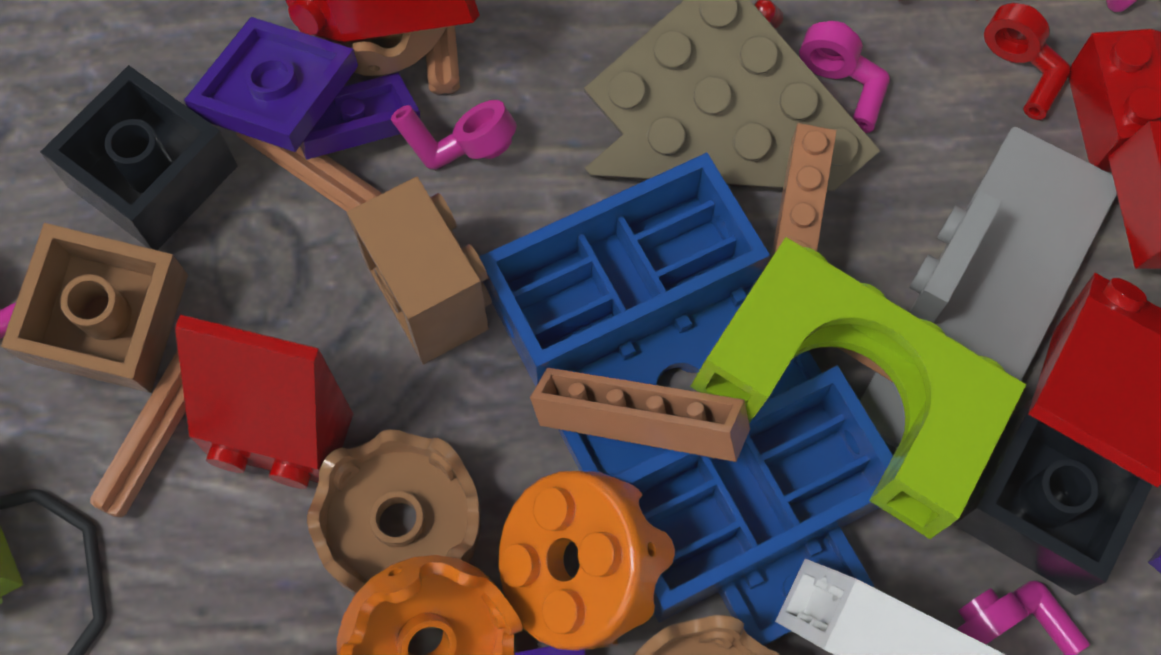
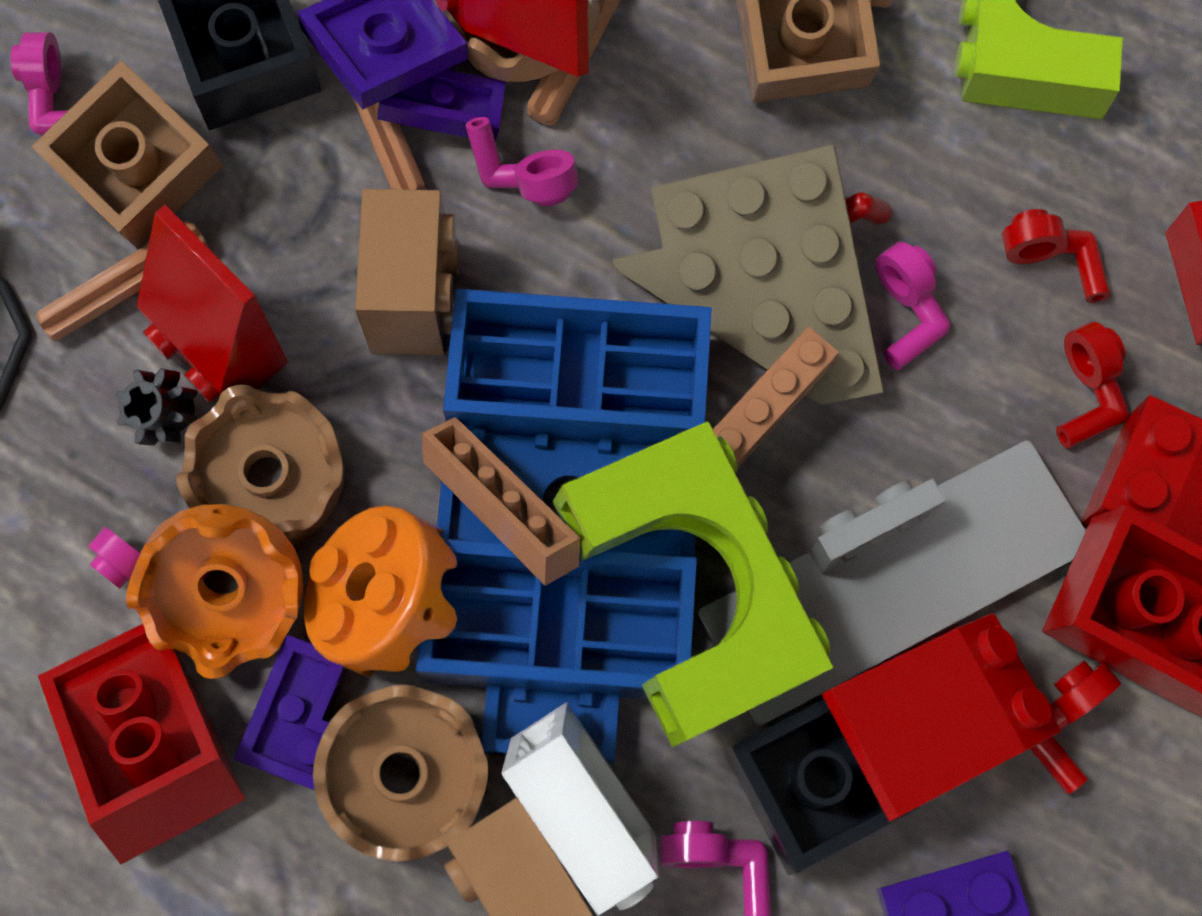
camera: 30 degrees right, 5 degrees up
(244, 519) = (157, 407): none -> black gear

